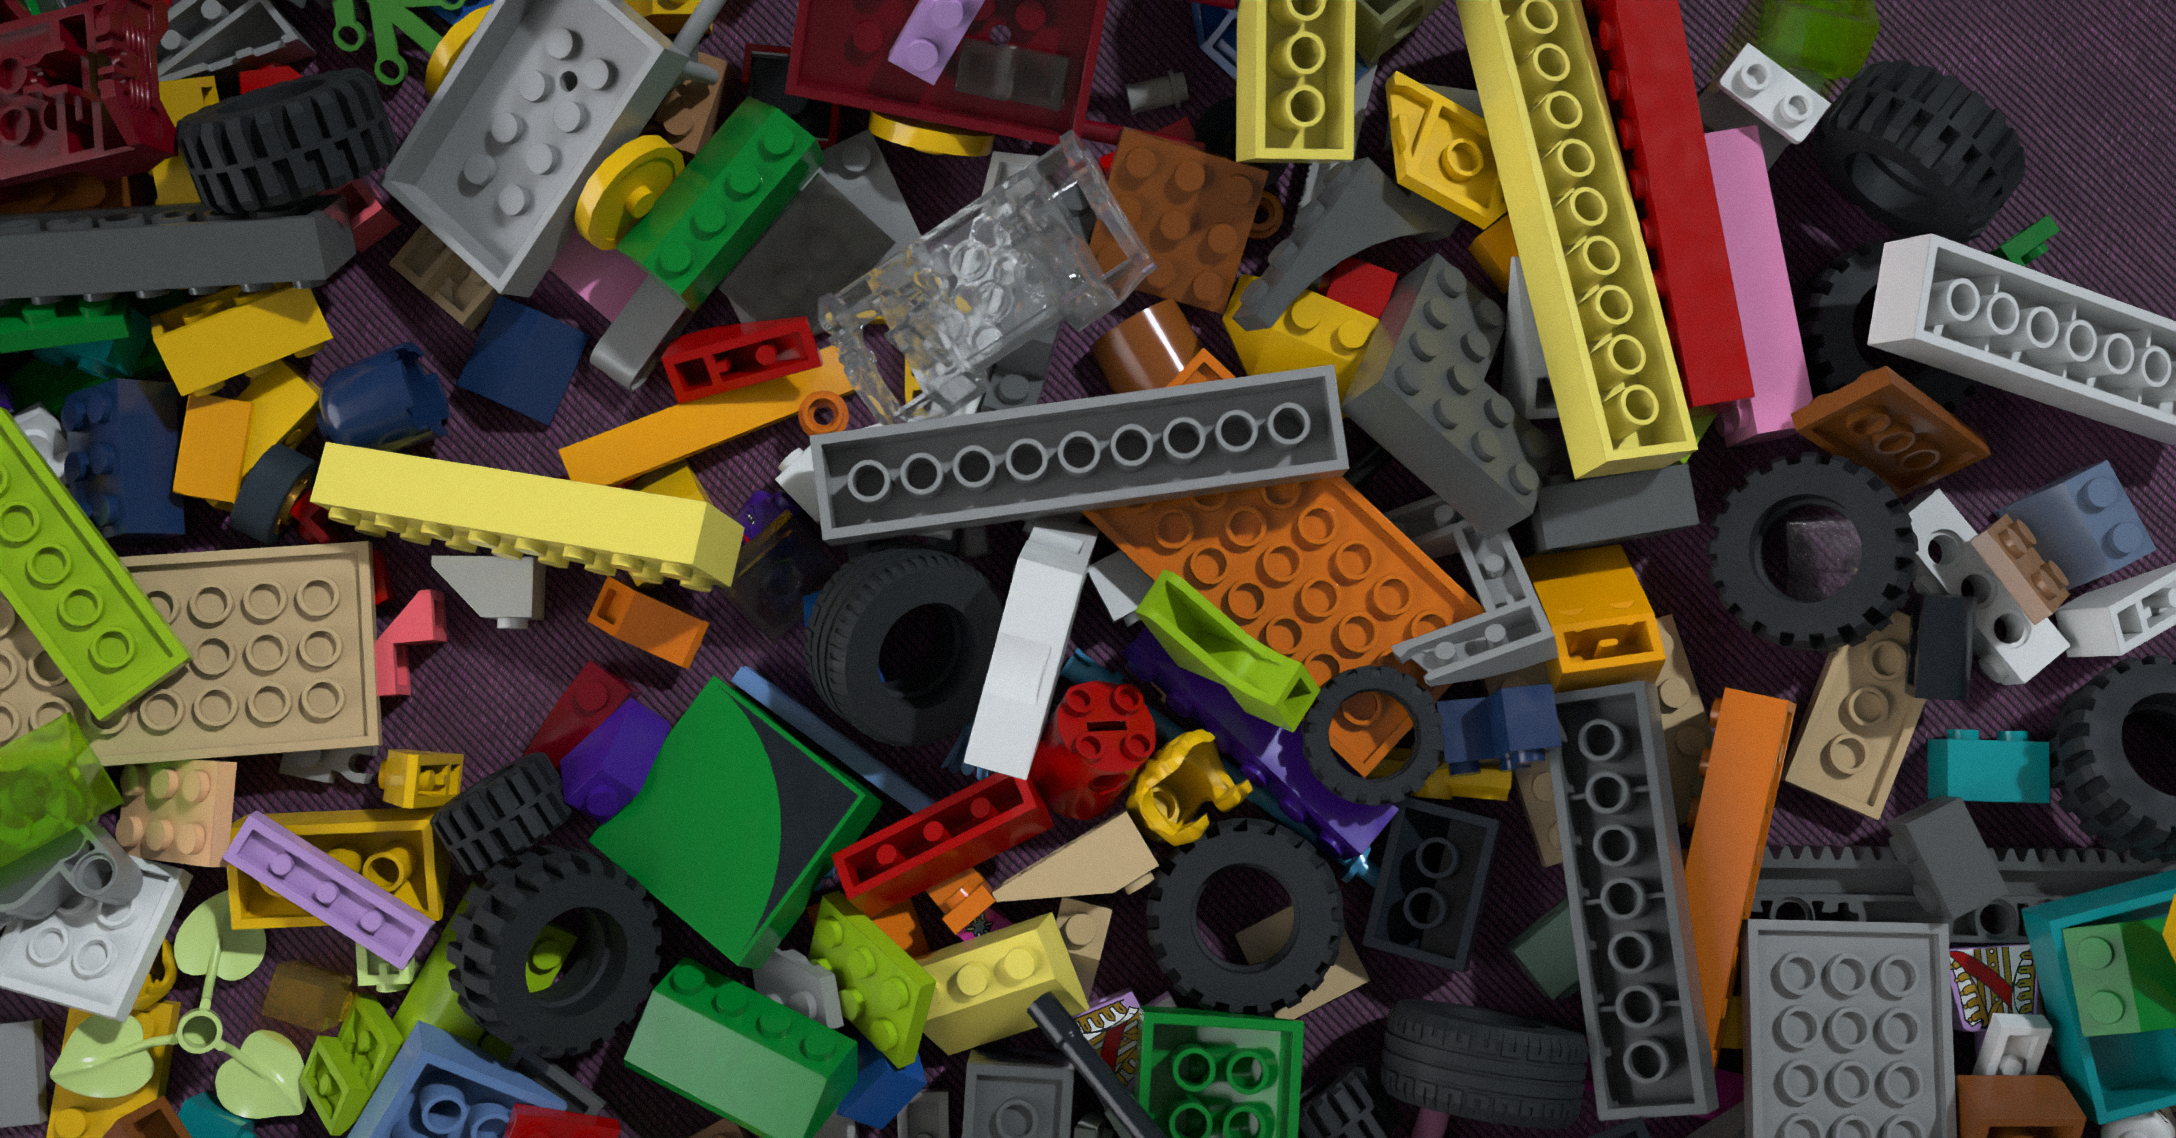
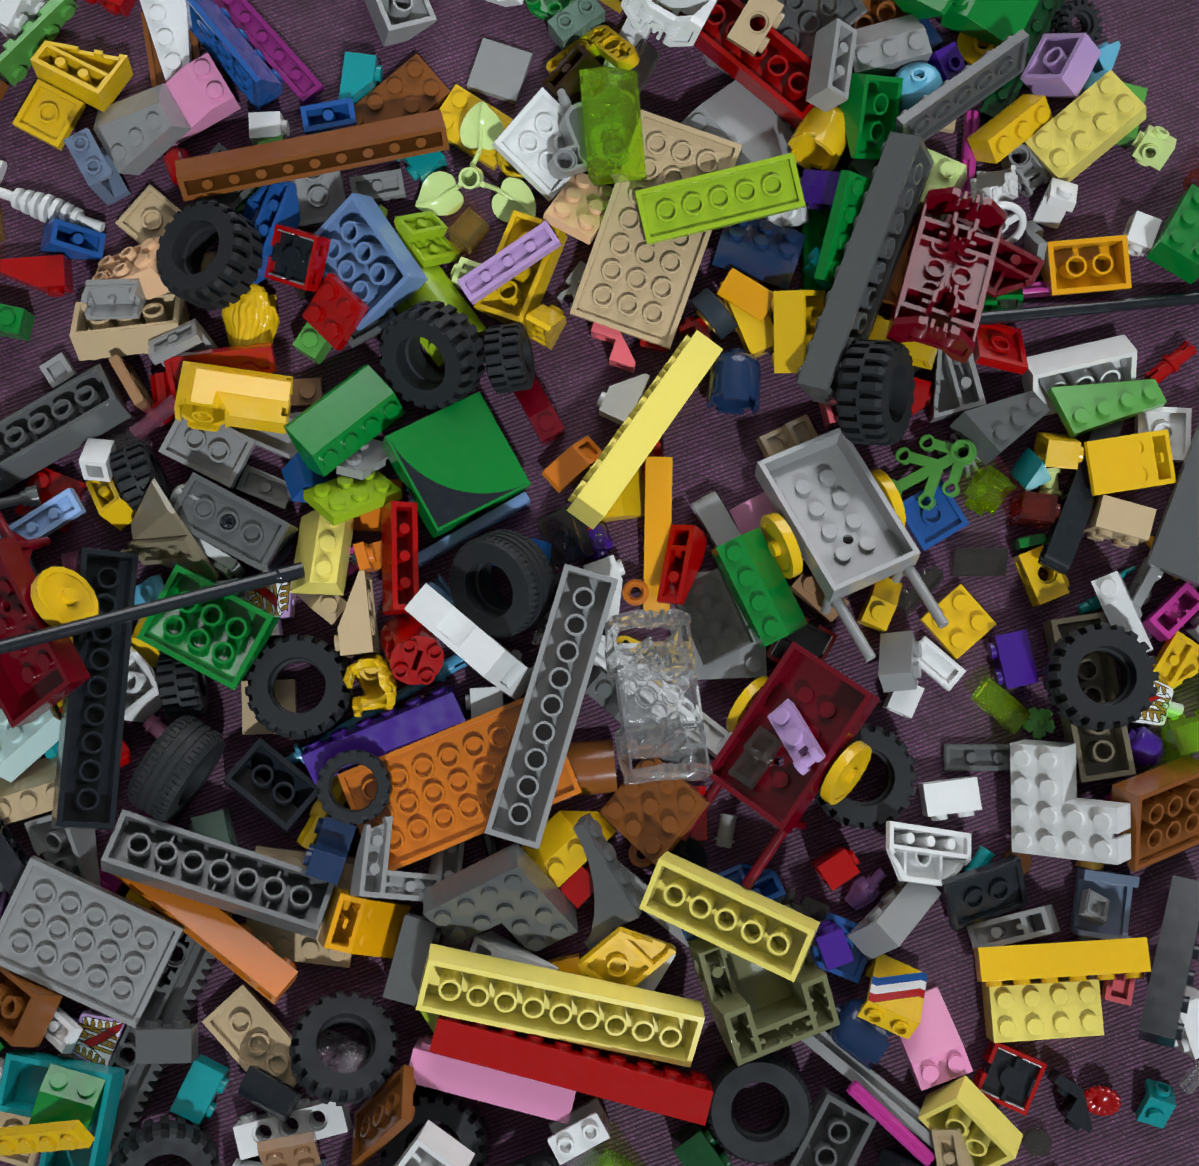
camera: 120 degrees right, 0 degrees up
(524, 360) = (728, 458): dark blue slope -> none
(613, 761) = (510, 419): dark purple slope -> none
(1218, 649) = (424, 732): lime arch -> none

